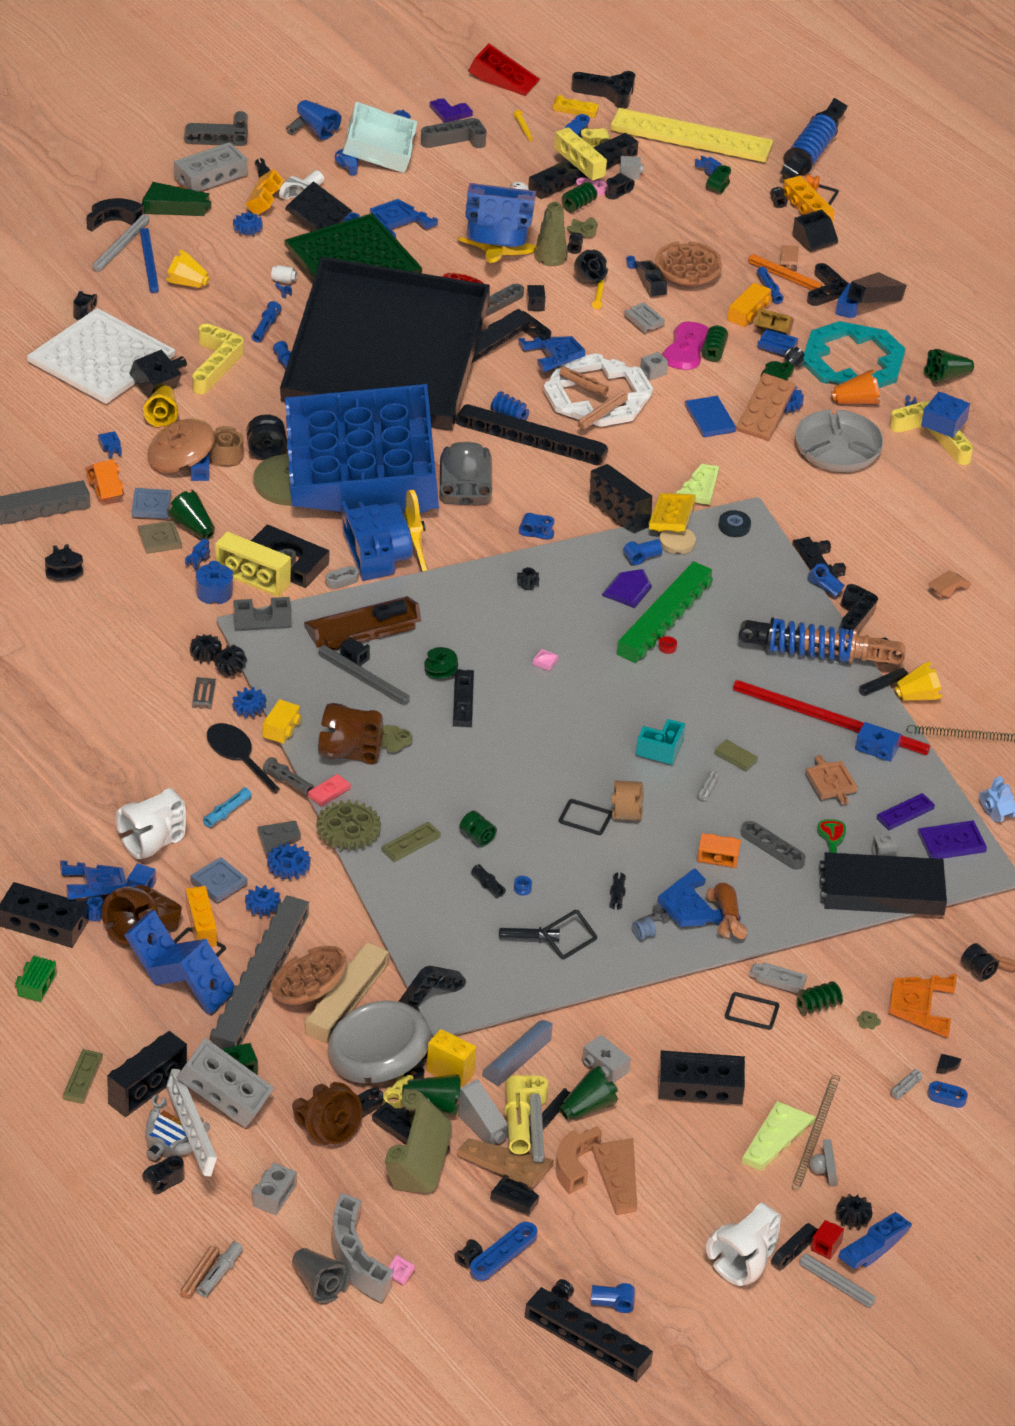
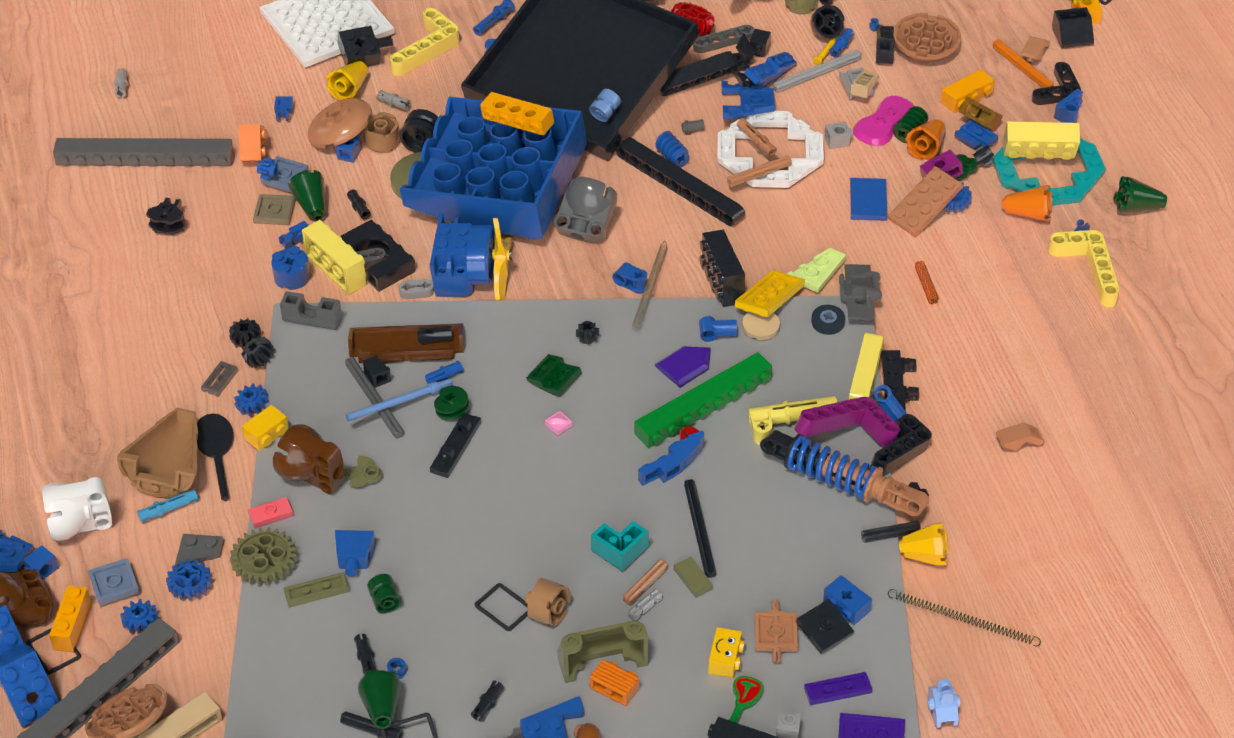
camera: 25 degrees right, 5 degrees up
(139, 499) = (267, 168): none -> blue gear
(206, 766) = (164, 456): none -> medium nougat cone
(215, 416) = (393, 100): none -> light grey pin
(240, 515) = (358, 204): none -> black pin
(276, 771) = (238, 482): dark grey pin -> none
(368, 397) = (517, 113): none -> light orange brick
(413, 656) = (431, 388): none -> medium blue bar
(416, 640) = (444, 372): none -> blue axle
(426, 801) = (354, 549): none -> blue torso
(433, 376) = (605, 105): none -> medium blue wheel
(512, 385) = (691, 126): none -> dark grey pin
(517, 622) = (554, 375): none -> dark green slope
(525, 304) = (745, 48): none -> black sticker
(528, 905) = (380, 695): none -> dark green cone
(559, 527) = (643, 312): none -> dark tan piece
(561, 318) = (771, 70): none -> blue slope
(602, 313) = (816, 71): none -> light grey axle
(610, 283) = (841, 42): none -> blue pin
(654, 316) = (863, 84): none -> tan slope
(667, 668) = (679, 458): none -> blue slope
(697, 768) = (645, 581): none -> nougat axle
(712, 813) = (625, 638): none -> olive windscreen
(719, 715) = (700, 528): none -> black axle
(728, 616) = (780, 413): none -> light yellow piece
(737, 354) = (926, 139): none -> orange cone
(746, 495) = (857, 289): none -> dark grey piece
(766, 366) = (946, 162): none -> magenta brick
(769, 283) = (1000, 77): blue pin -> none
(791, 857) = (674, 691): dark grey beam -> none
(792, 557) = (867, 366): none -> light yellow beam
(799, 805) = (725, 652): none -> yellow brick
(801, 476) = (926, 282): none -> clear orange axle
(805, 592) = (847, 414): none -> magenta beam
(819, 713) = (810, 555): red axle -> none
(839, 440) = (983, 253): light grey piece -> none
(843, 332) = (1041, 140): none -> light yellow brick
(870, 766) = (824, 626): none -> black plate
(876, 288) = (1102, 99): black slope -> none
(945, 414) = (1102, 249): blue brick -> none

